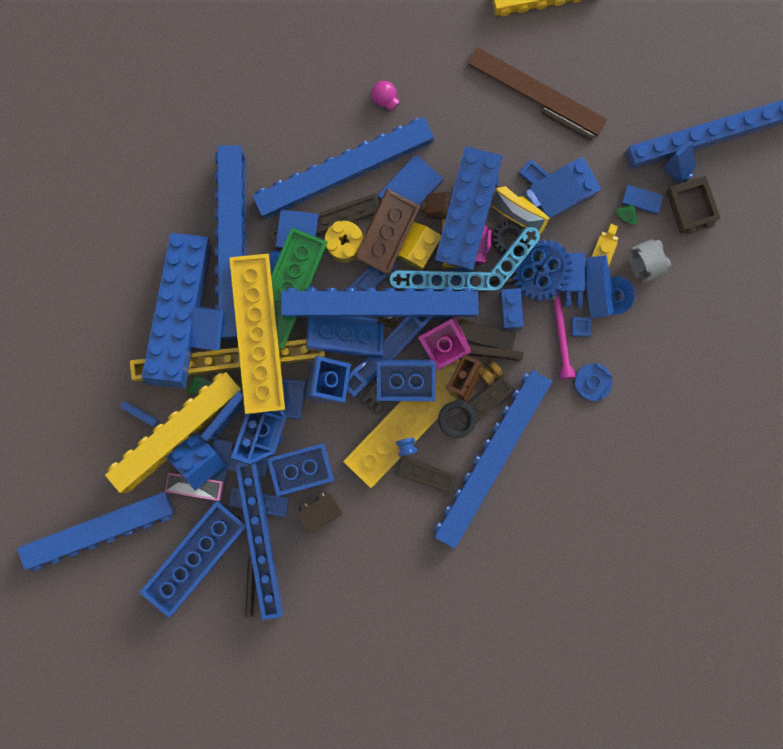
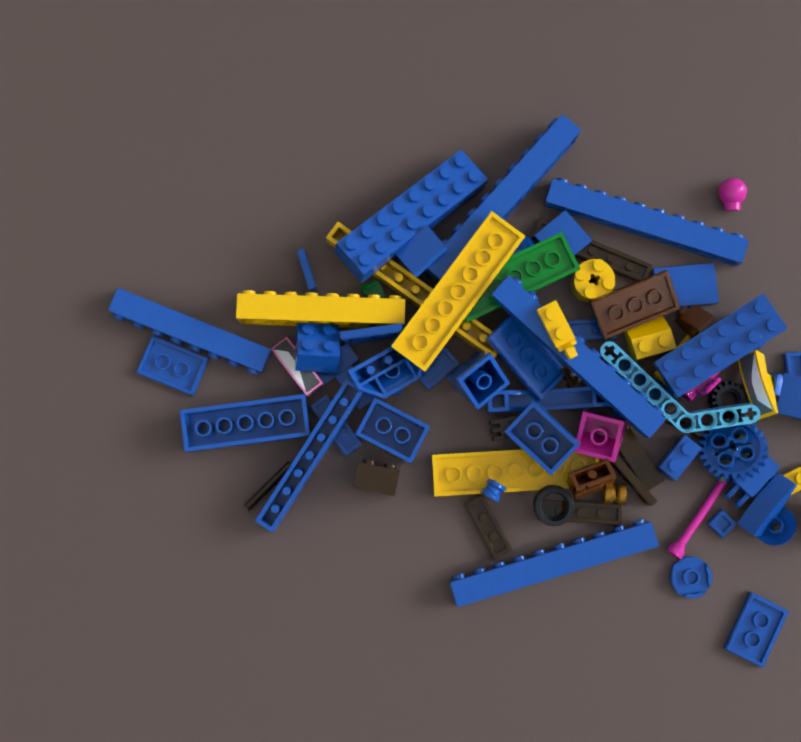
camera: 40 degrees right, 0 degrees up
(106, 566) = (172, 365): none -> blue tile
(348, 297) = (558, 328): none -> yellow hinge
(668, 377) = (756, 629): none -> blue tile

